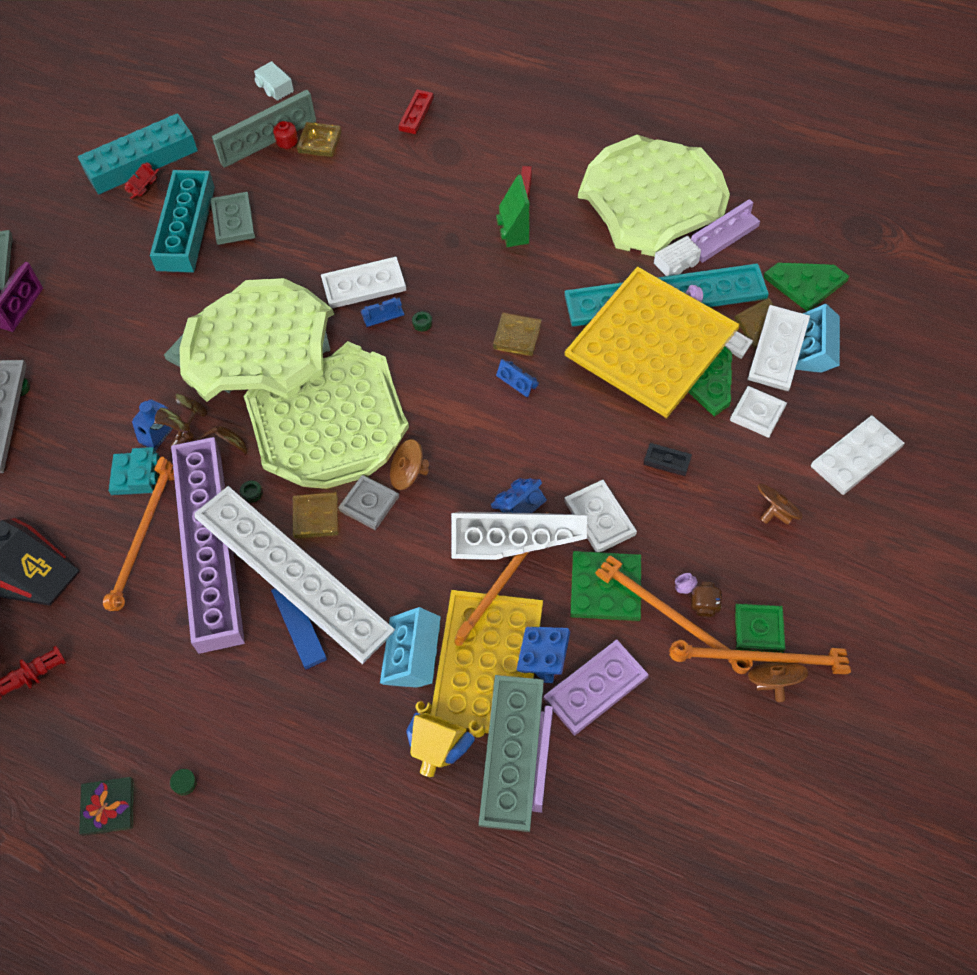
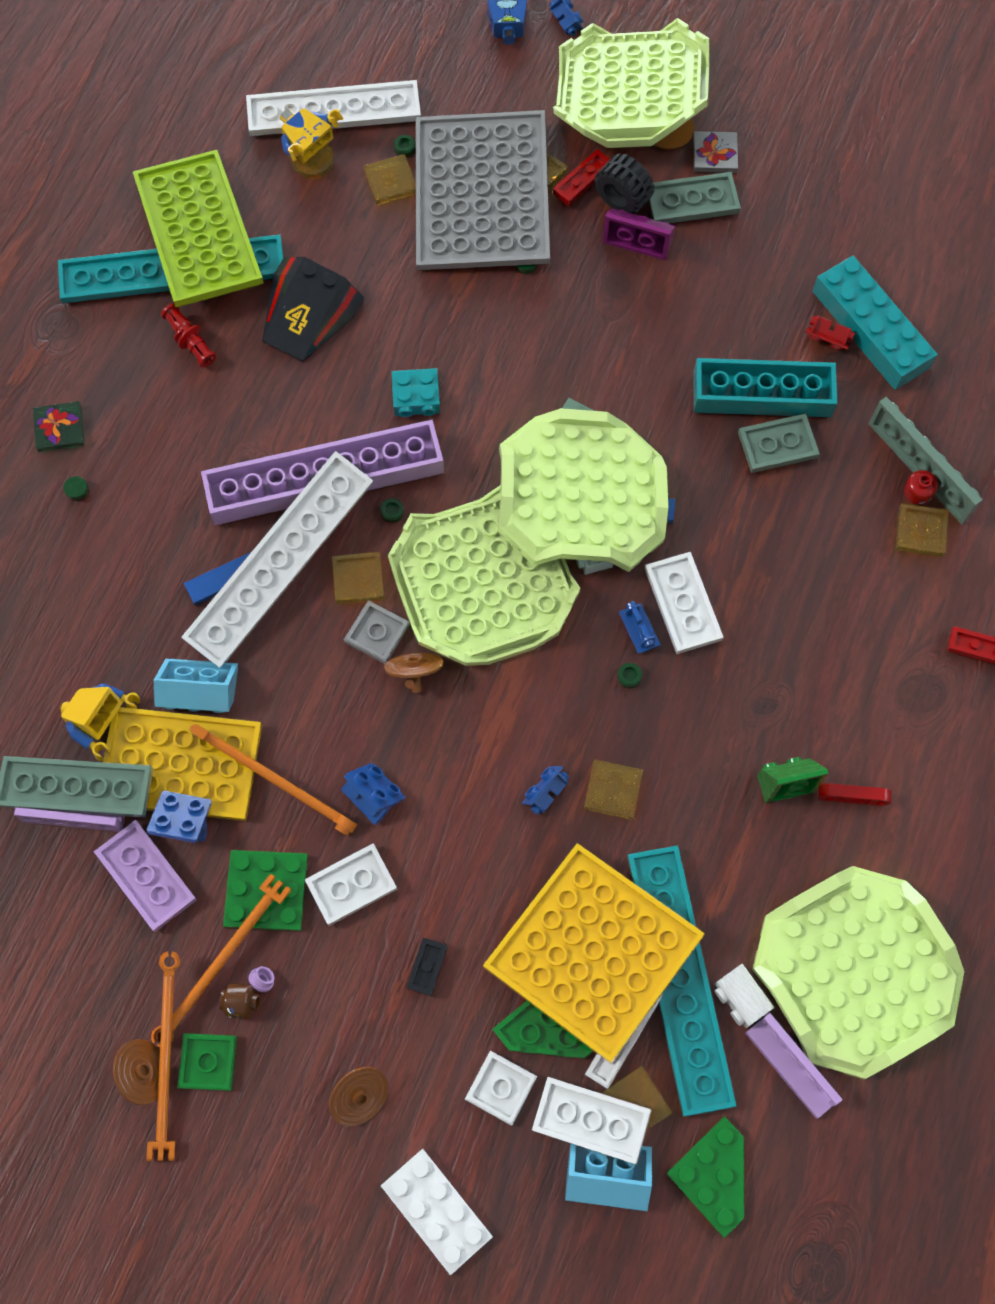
camera: 85 degrees right, 10 degrees up
(114, 600) = (270, 398): orange hinge -> none
(146, 430) = (472, 401): blue torso -> none
(169, 418) = (446, 413): reddish brown plant -> none
(509, 533) = (320, 763): white wedge -> none
(695, 292) = (668, 1010): lavender plate -> none

